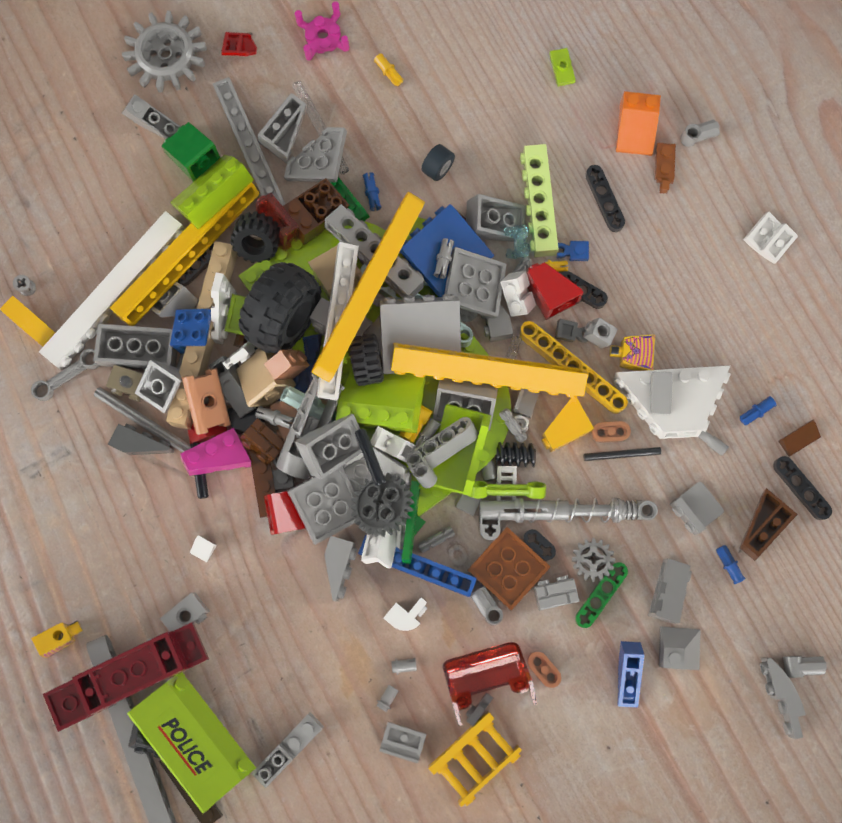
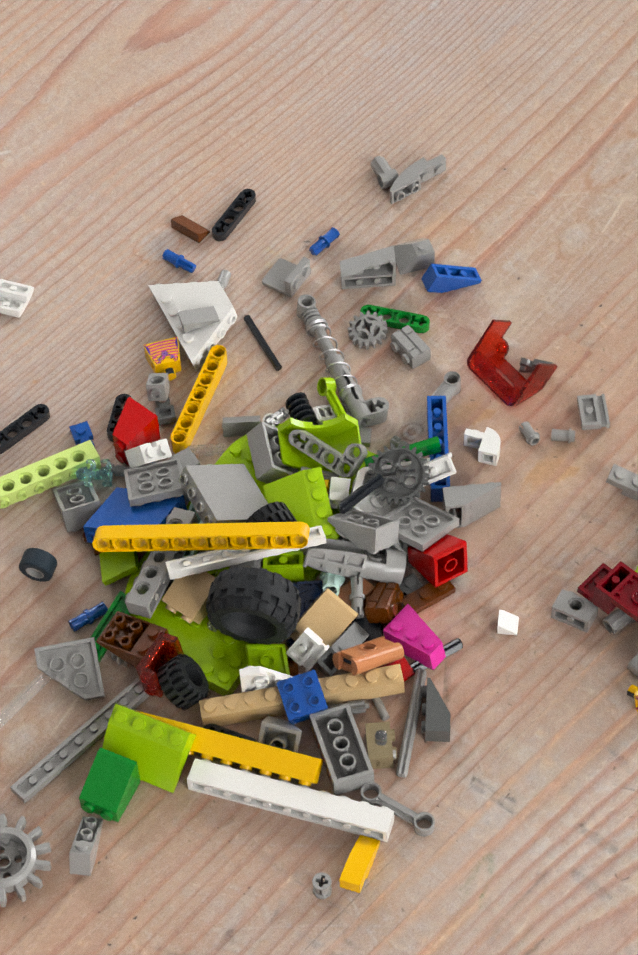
camera: 110 degrees left, 25 degrees down
(159, 385) = (372, 698): light grey slope -> none
(283, 127) = (50, 711): light grey wedge -> none
(286, 364) = (308, 592): nougat brick -> none
(443, 258) = (143, 506): light grey pin -> none
(455, 751) = (580, 373): yellow fence -> none
(488, 369) = (236, 439): yellow brick -> none
(508, 568) = (406, 386): dark orange plate -> none
(542, 541) = (376, 375): black beam -> none
(545, 668) = (476, 333): nougat plate -> none
(556, 265) = (106, 445): yellow pin -> none
(567, 426) = (256, 386): yellow slope -> none
(610, 432) = (249, 357): nougat plate -> none
(766, 524) = (279, 225): reddish brown wedge -> none

